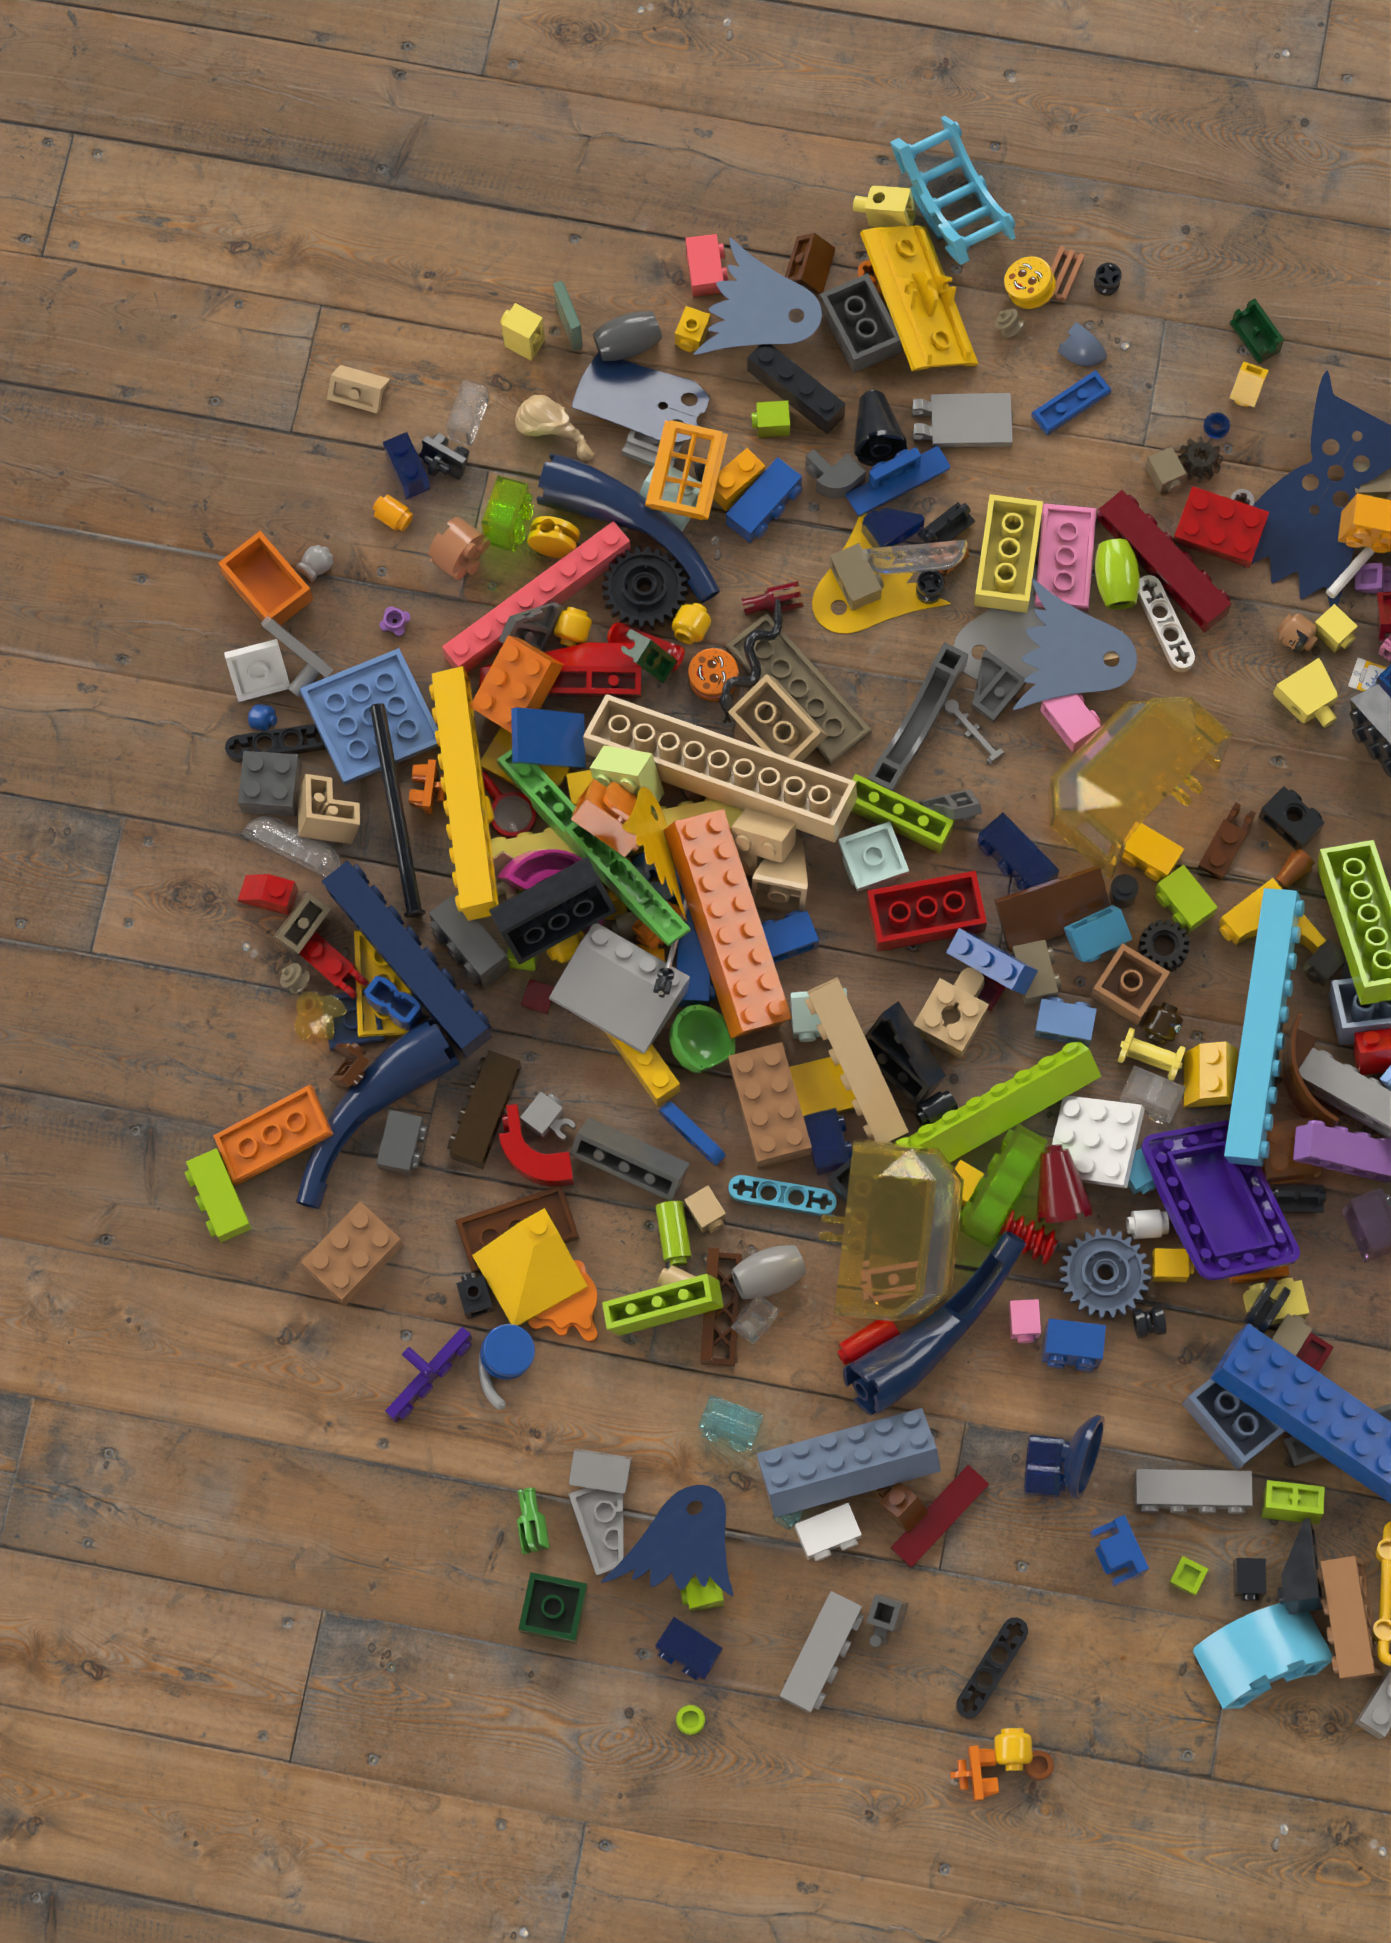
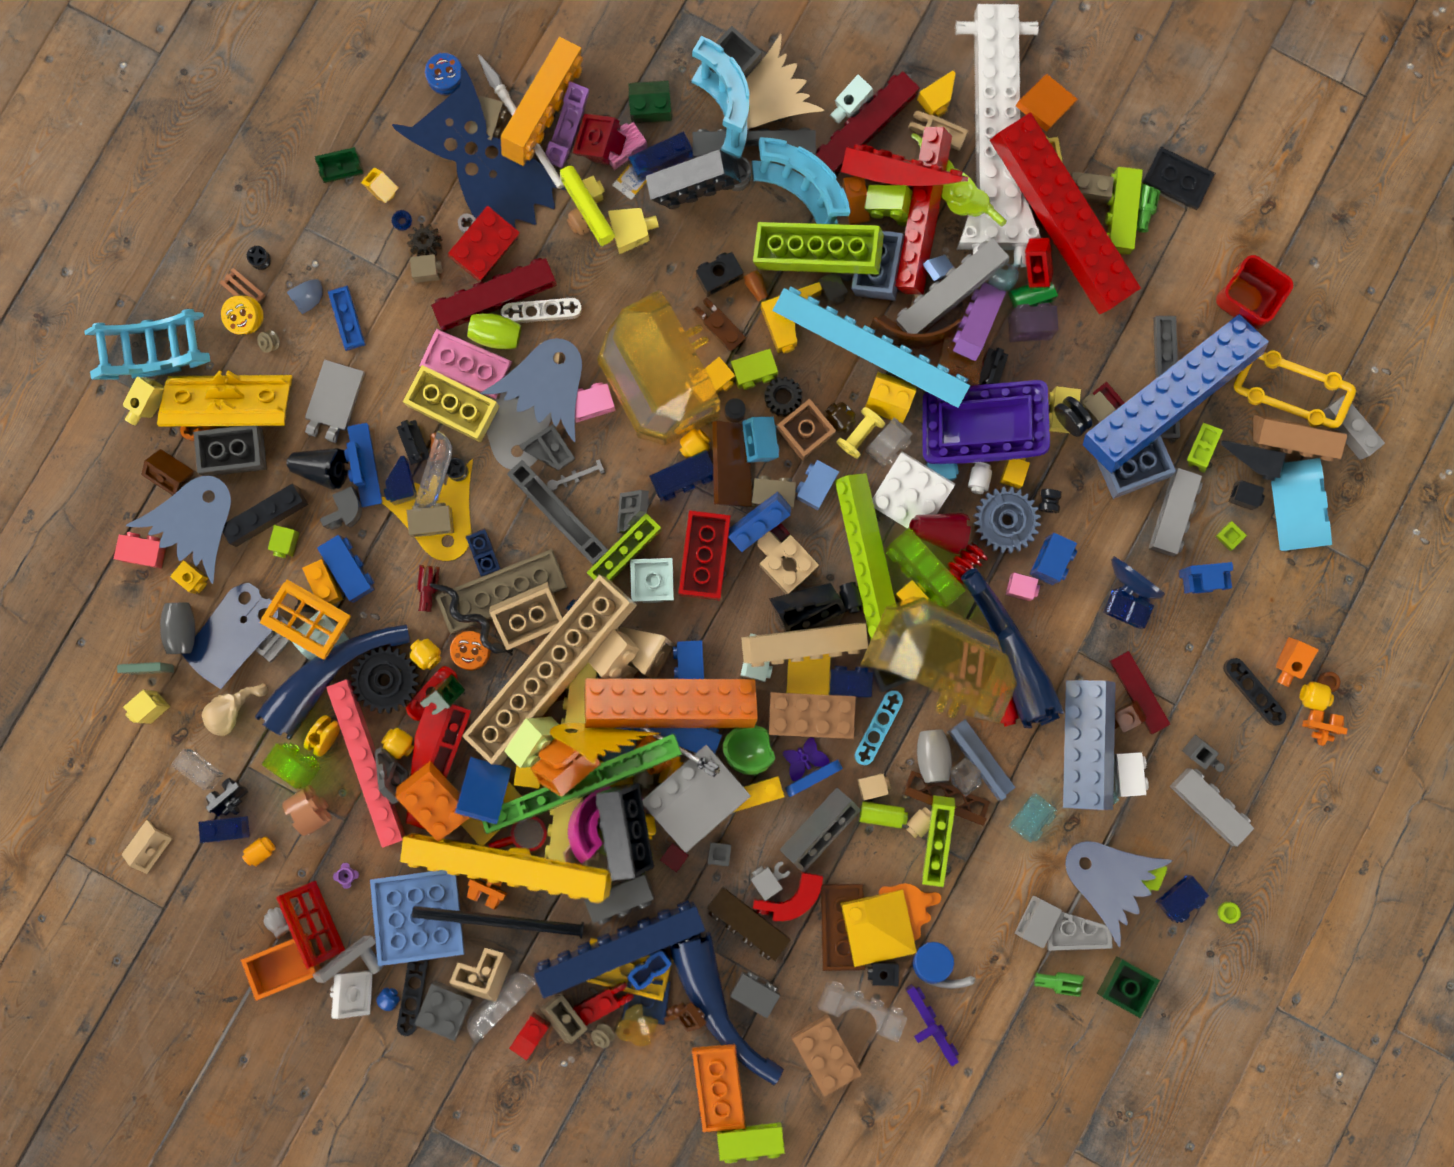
camera: 80 degrees left, 10 degrees up
(312, 581) = (296, 928): none -> red piece
(416, 1318) = (838, 1000): none -> clear arch
(560, 1048) = (719, 854): none -> dark grey plate
(714, 1115) = (803, 758): none -> dark purple piece
(784, 1336) = (980, 756): none -> sand blue fence
(839, 651) = (483, 552): none -> dark blue slope
(1062, 1704) = (1297, 653): none -> orange torso
(1065, 855) = (694, 443): none -> yellow head
(1314, 627) = (586, 205): none -> neon yellow brick

